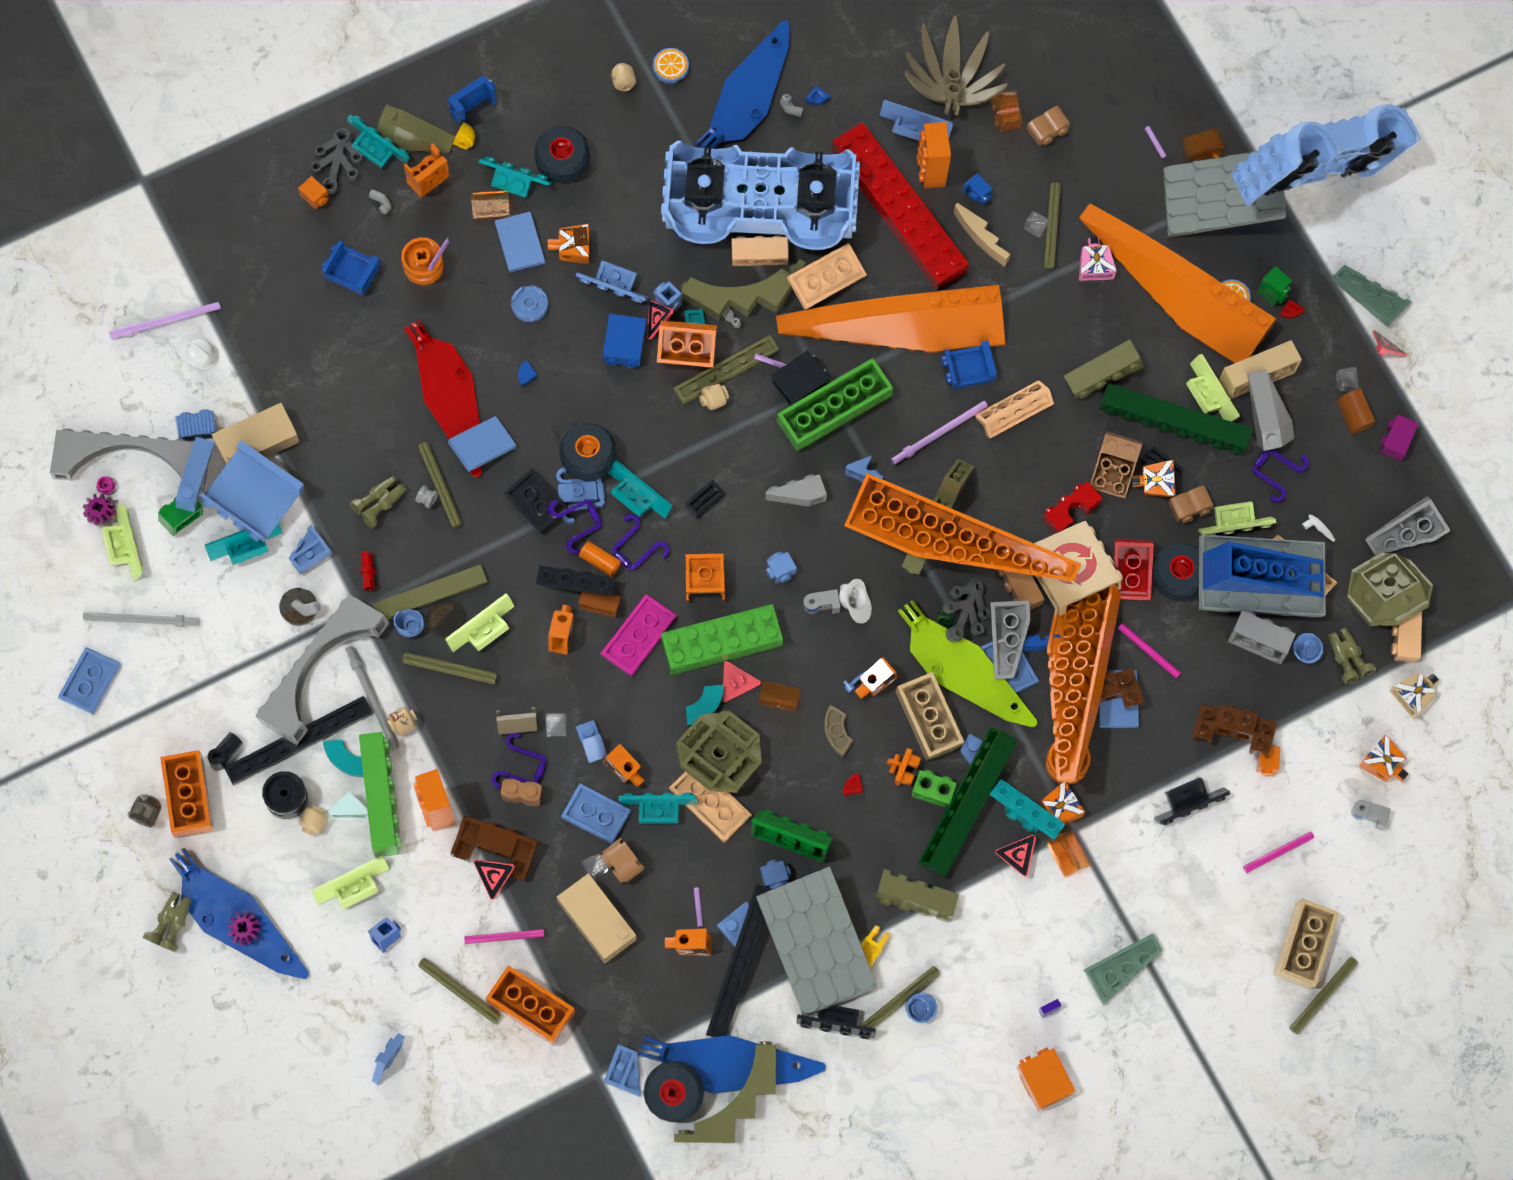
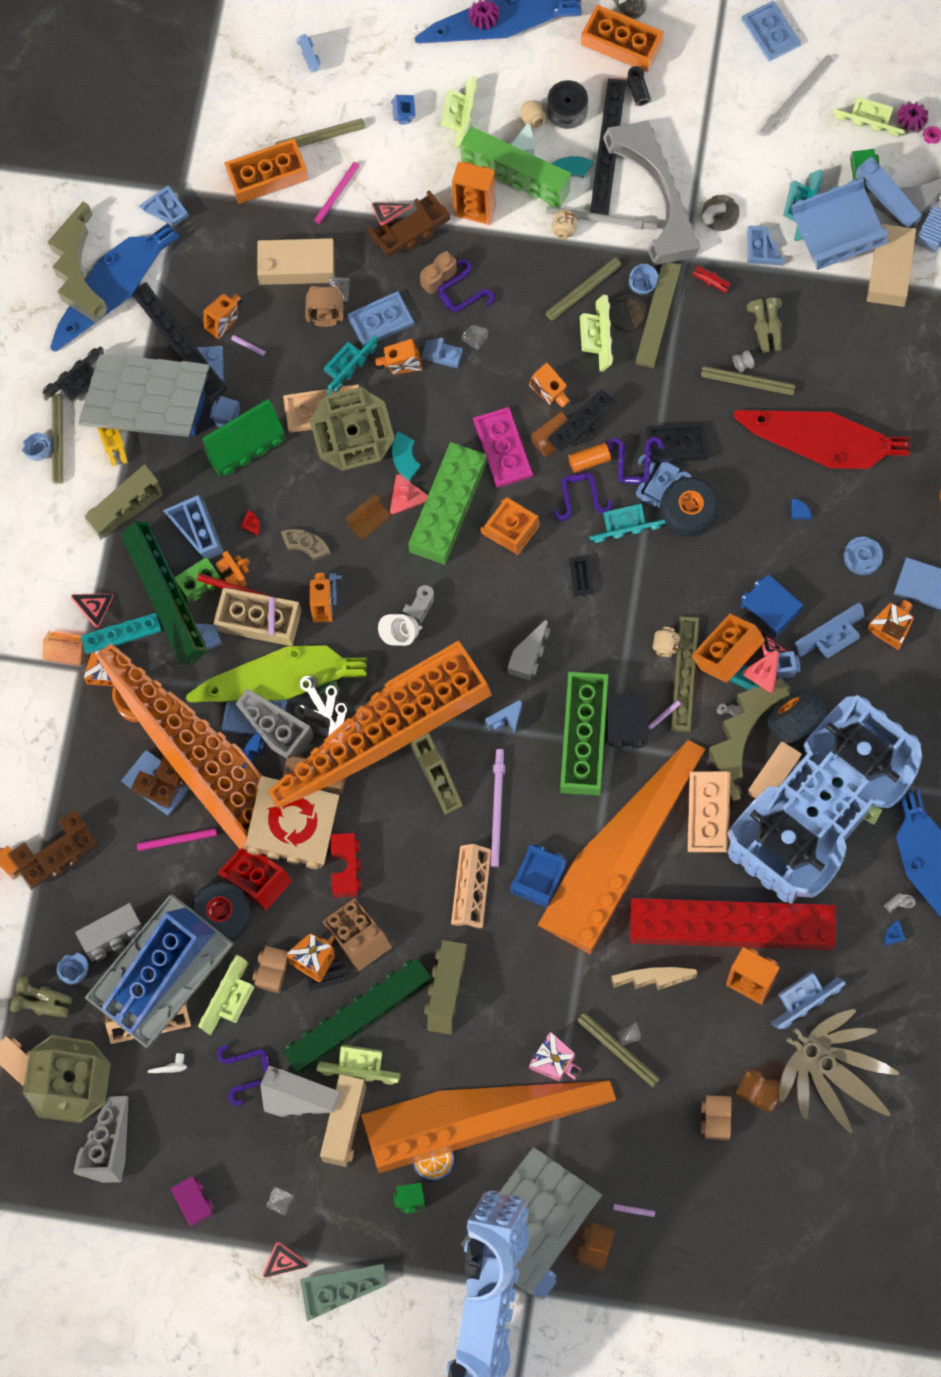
camera: 135 degrees right, 0 degrees up
(481, 443) = (758, 432): medium blue tile -> none
(516, 723) = (499, 306): dark tan hinge -> none
(673, 1091) = (119, 225): black wheel -> none
(687, 304) = (764, 671): none -> coral piece
(706, 256) = (797, 716): none -> black wheel
(780, 567) = (474, 592): medium blue brick -> none
(892, 821) = (196, 525): none -> medium blue wedge
(920, 751) = (223, 584): none -> red bar
(924, 699) = (271, 616): none -> lavender piece
(978, 189) = (698, 1006): blue brick -> none
(1189, 798) = (29, 773): black bracket -> none
(1291, 310) = (381, 1204): red tile -> none
(1356, 411) = (245, 1183): dark orange brick -> none

